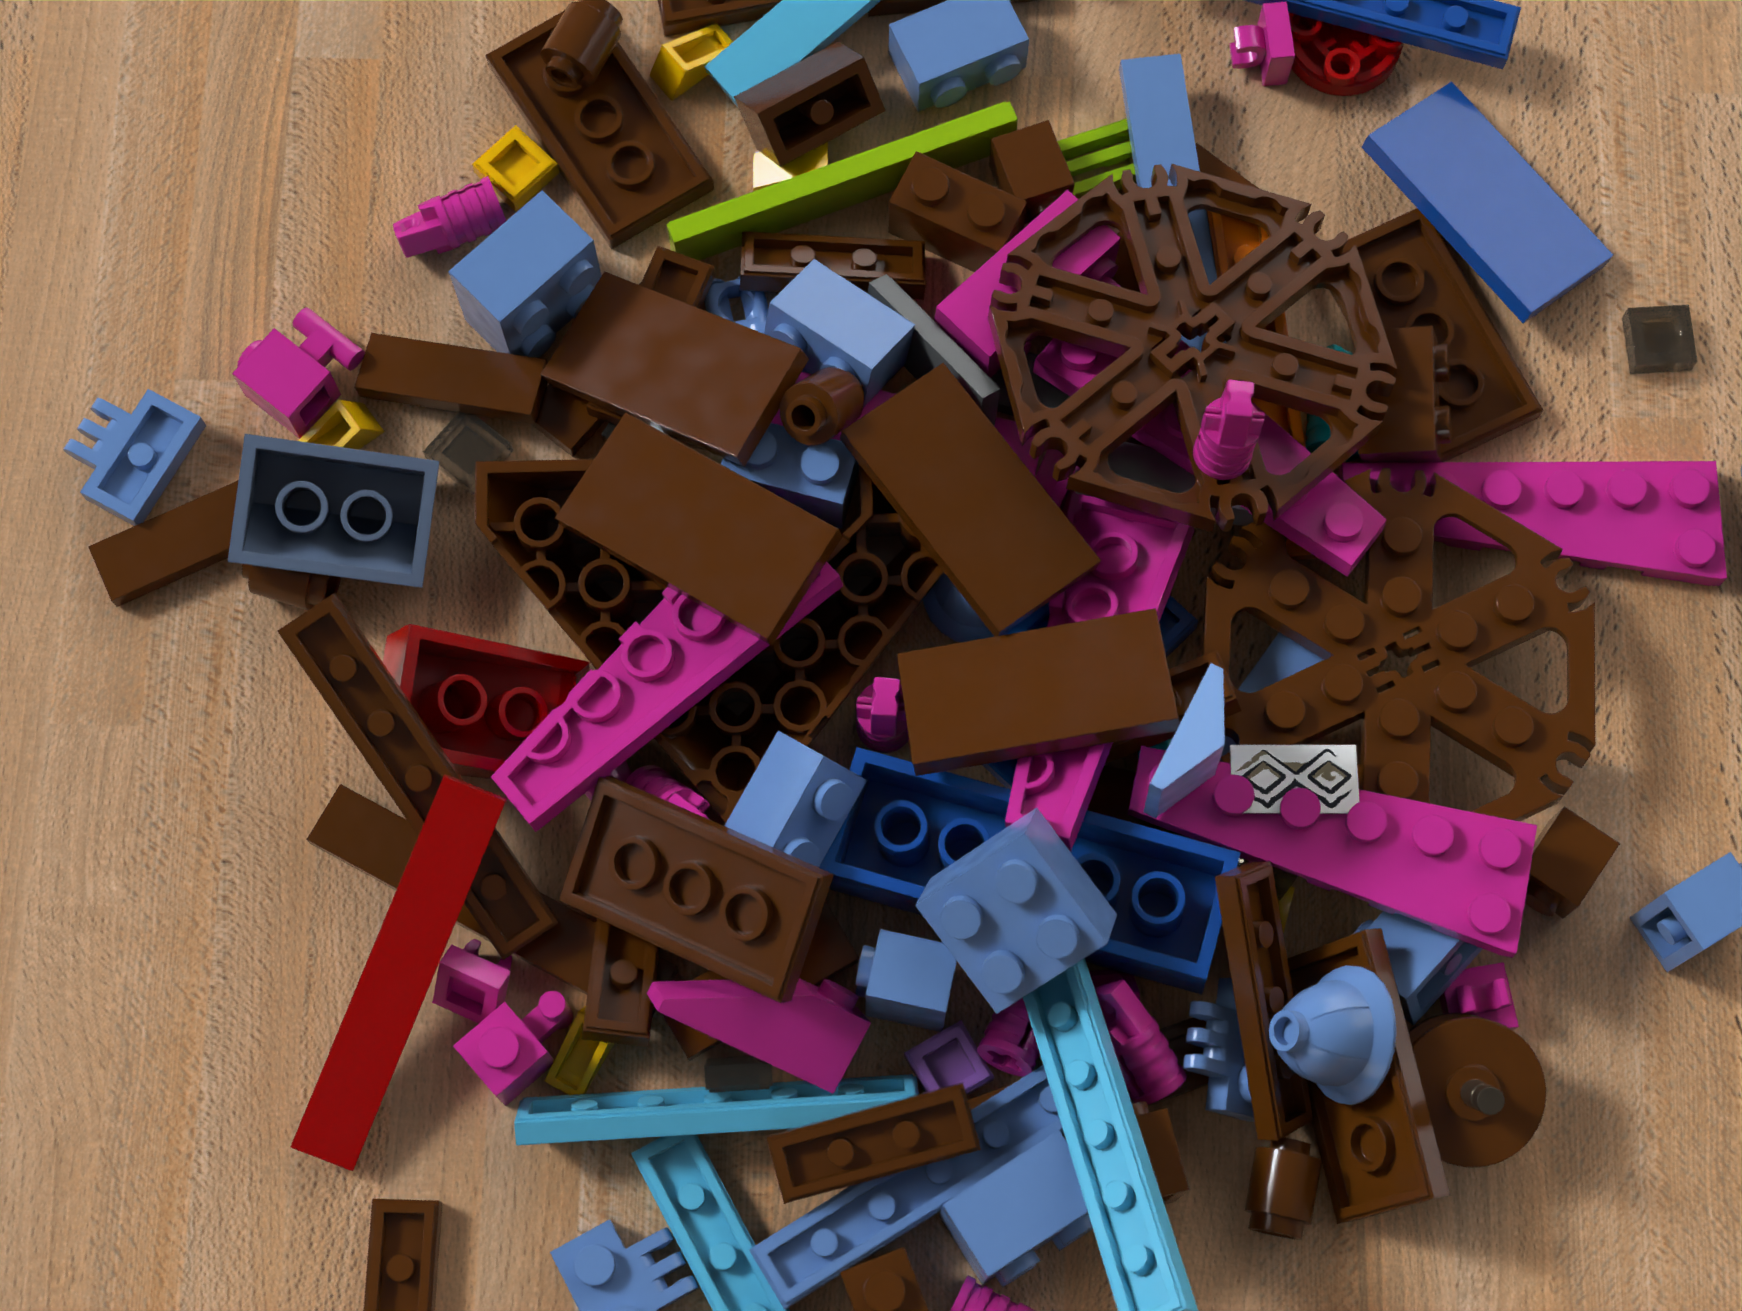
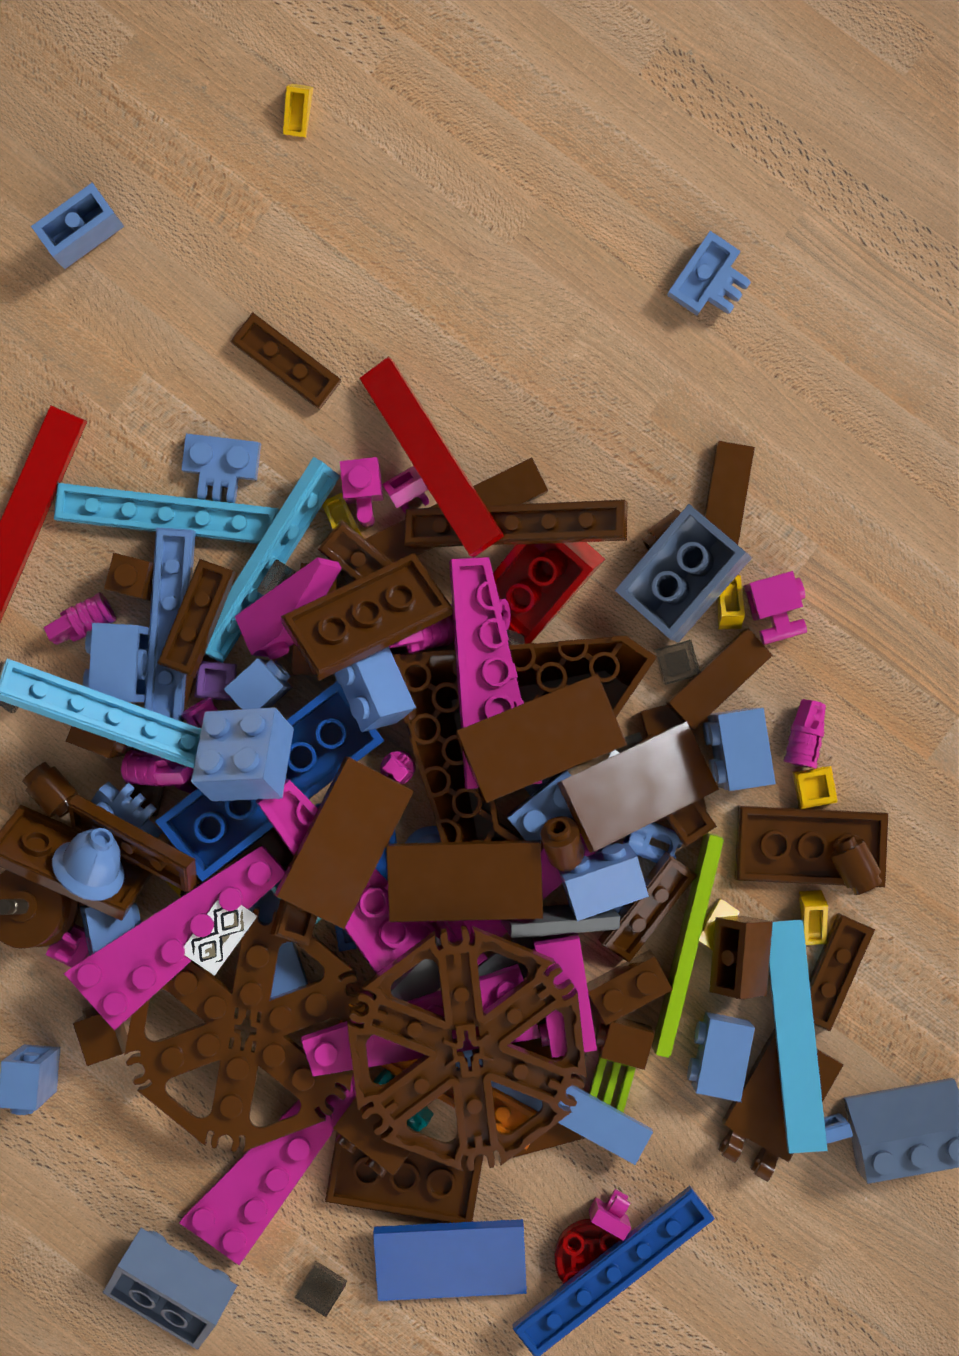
camera: 130 degrees right, 15 degrees up
(134, 453) = (788, 499): medium blue hinge -> none
(1194, 748) = (255, 893): light blue slope -> none
(1228, 432) = (396, 1026): dark pink hinge -> none

